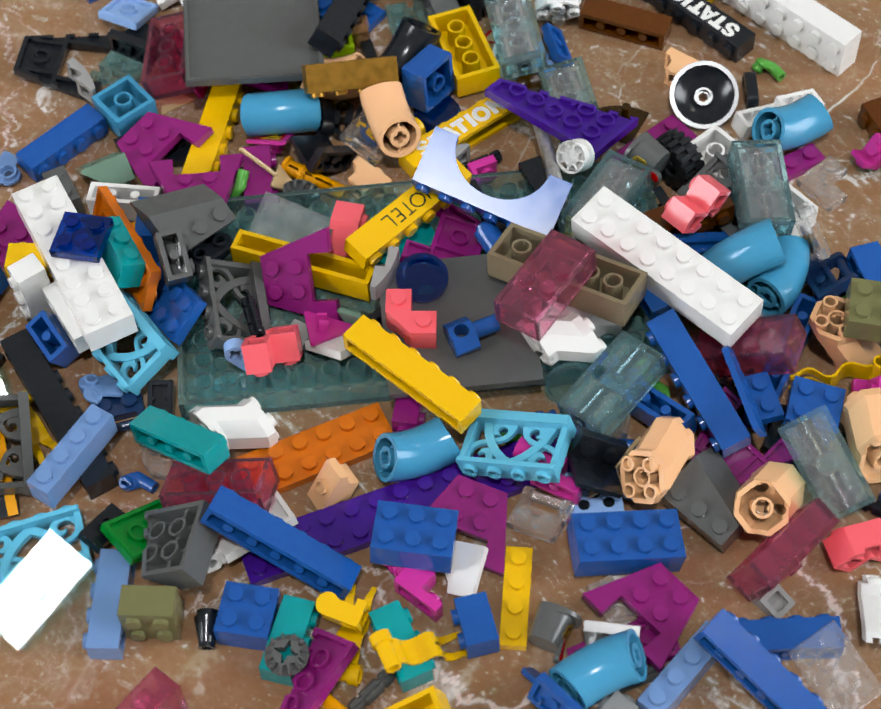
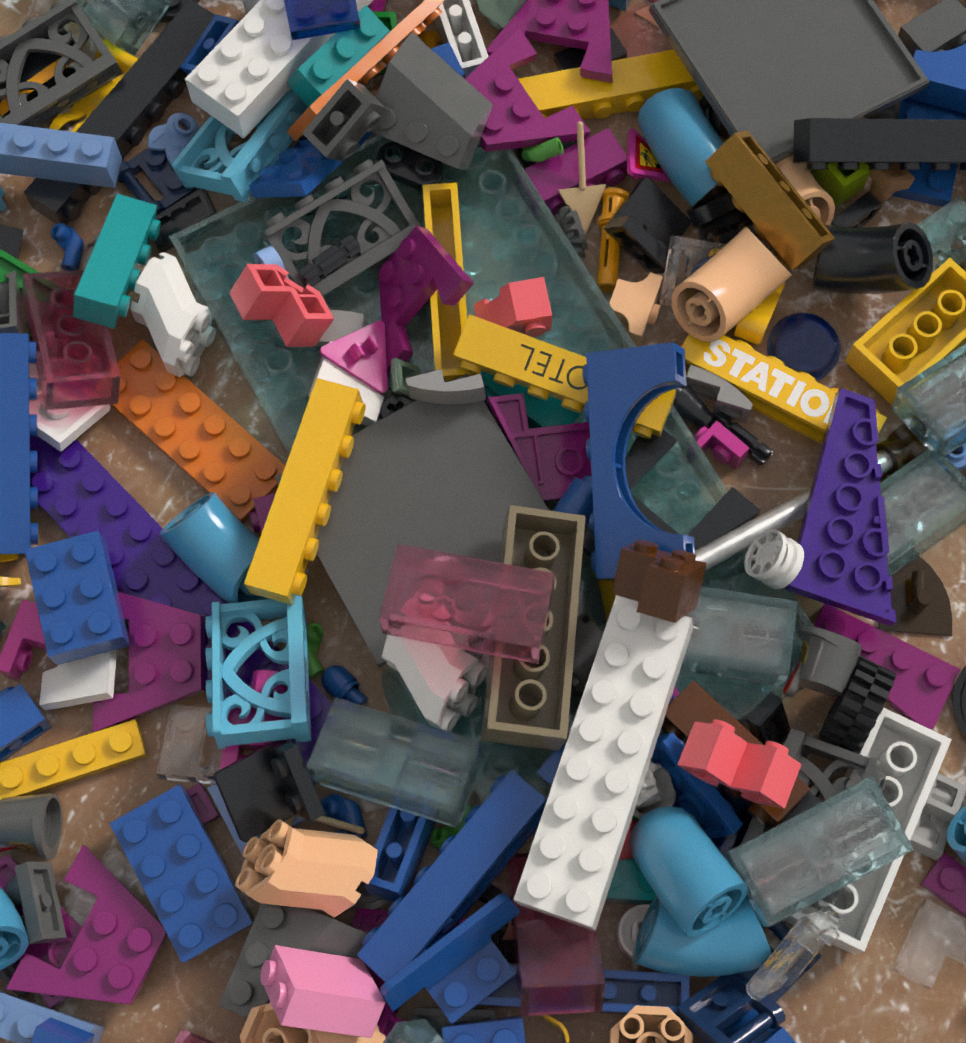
camera: 65 degrees right, 15 degrees up
(286, 219) = (495, 239): clear plate -> none
(332, 484) = (139, 469): light nougat brick -> none
(415, 327) = (385, 437): coral brick -> none
(424, 275) = (461, 438): clear blue piece -> none
(428, 78) = (834, 304): blue brick -> none
(472, 330) = (384, 545): blue piece -> none
(578, 187) = (660, 581): none -> reddish brown brick
(740, 469) = (322, 991): none -> bright pink brick

